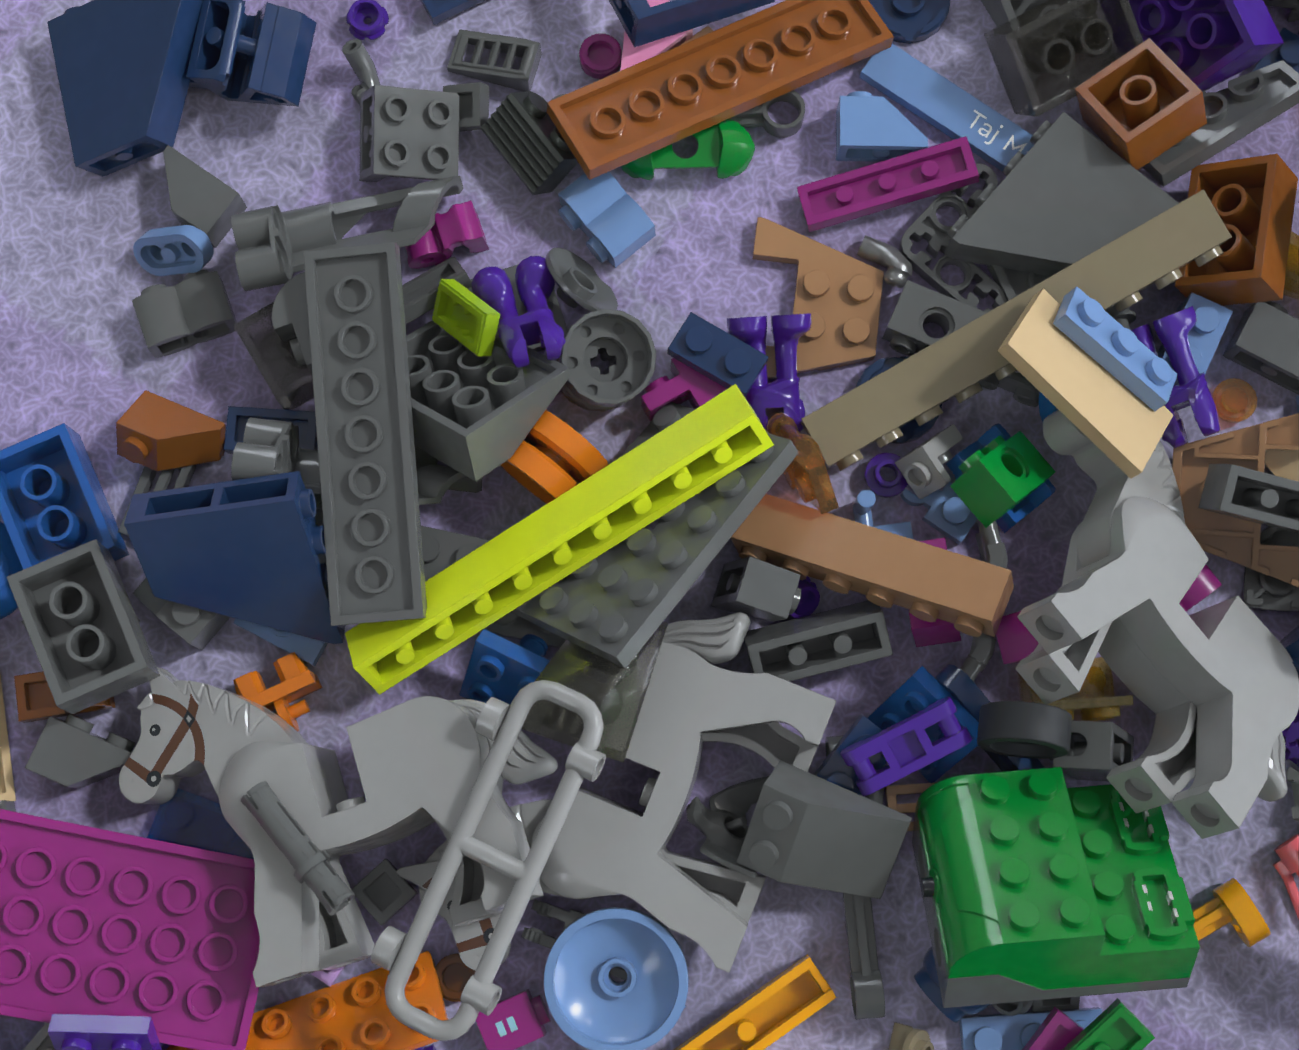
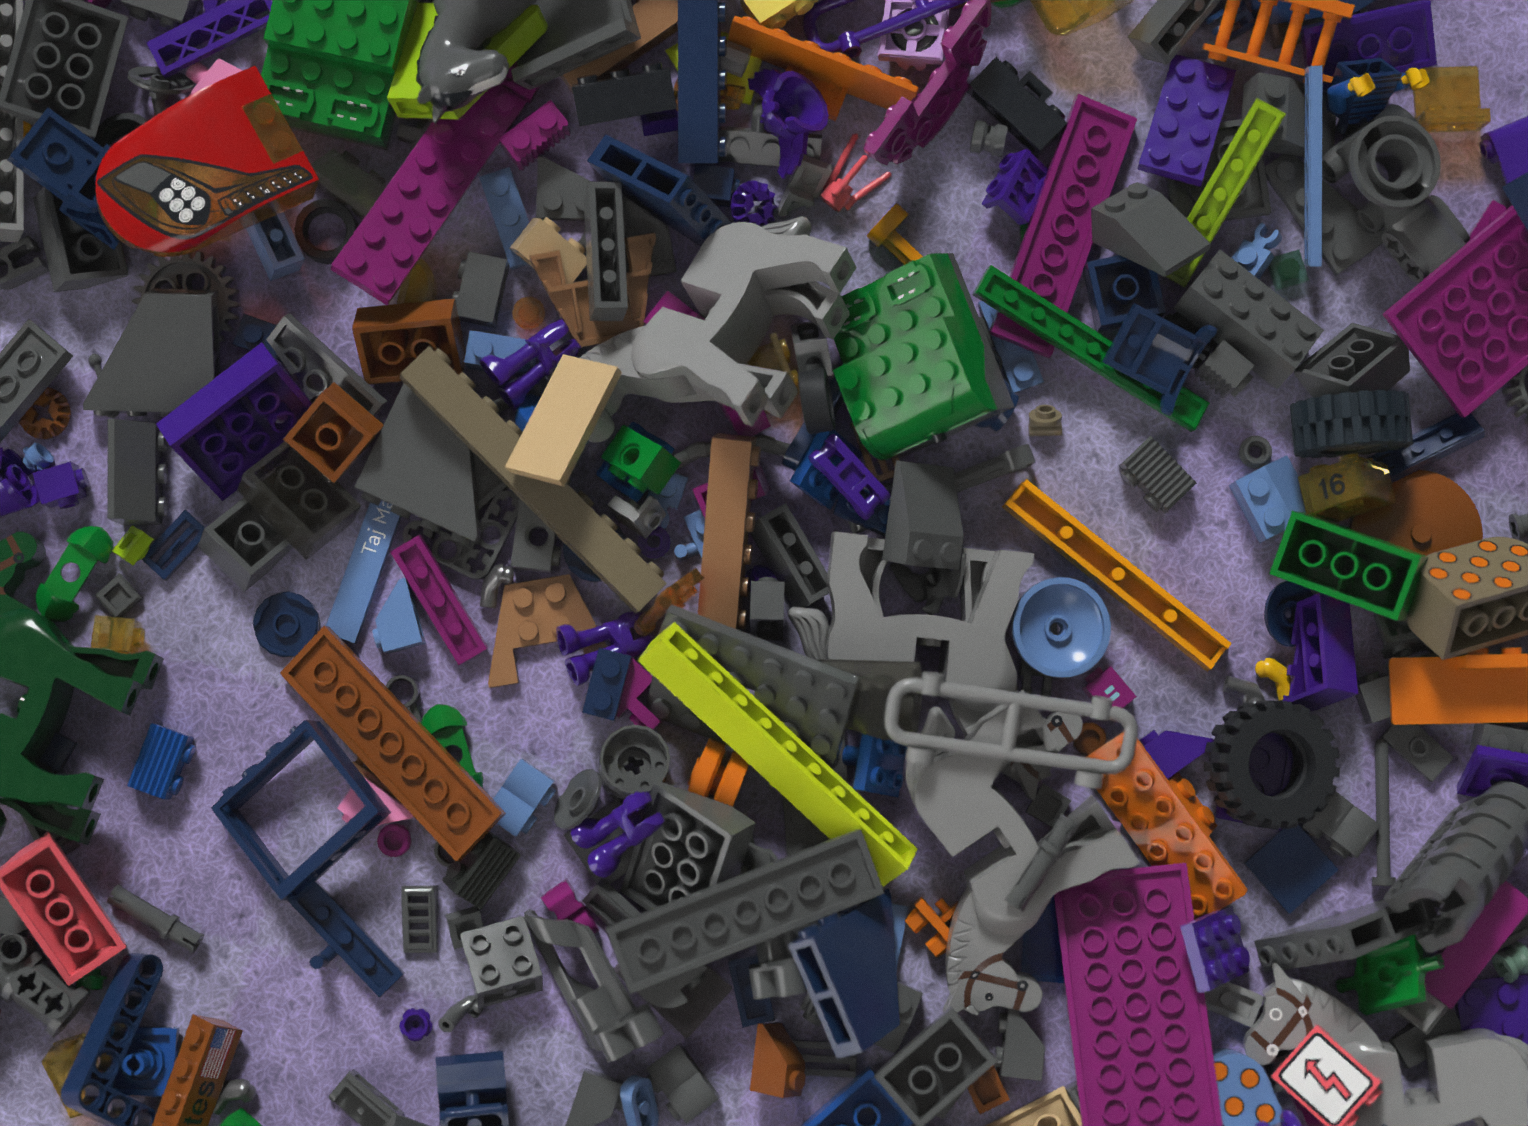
camera: 105 degrees left, 5 degrees up
(466, 317) = (632, 871): lime plate -> none
(1115, 348) = (532, 406): medium blue plate -> none

